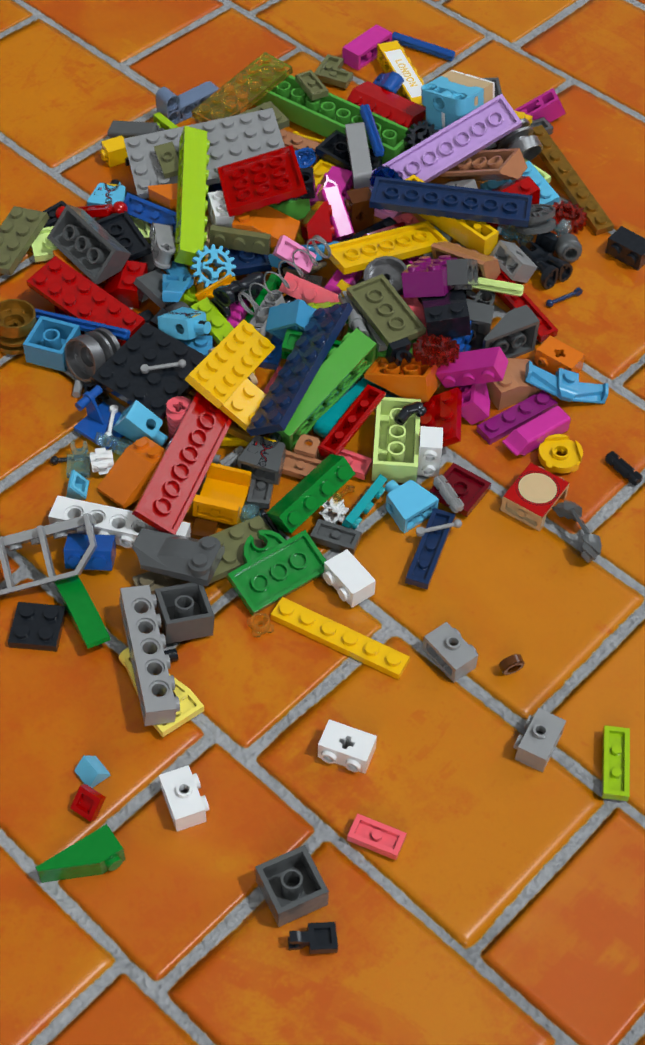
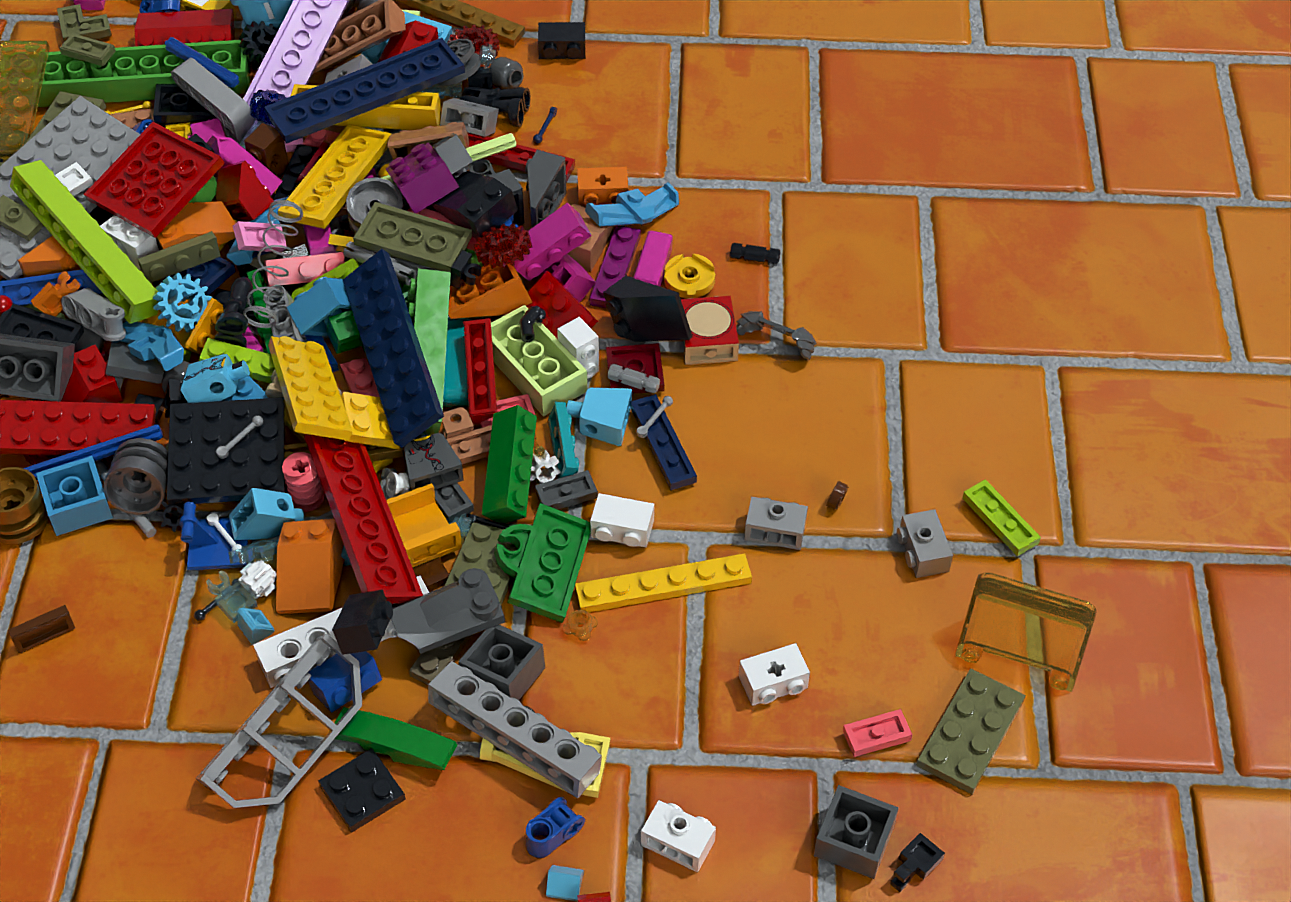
camera: 40 degrees left, 0 degrees up
(114, 521) = (362, 622): none -> black brick
(116, 732) = (555, 823): none -> blue piece
(145, 219) = (50, 296): none -> orange plate
(219, 155) = (75, 178): none -> white plate
(232, 459) = (397, 484): none -> white bush
(444, 886) = (971, 731): none -> olive plate
(494, 454) = (646, 311): none -> black slope
(543, 849) = (1027, 627): none -> clear yellow windscreen

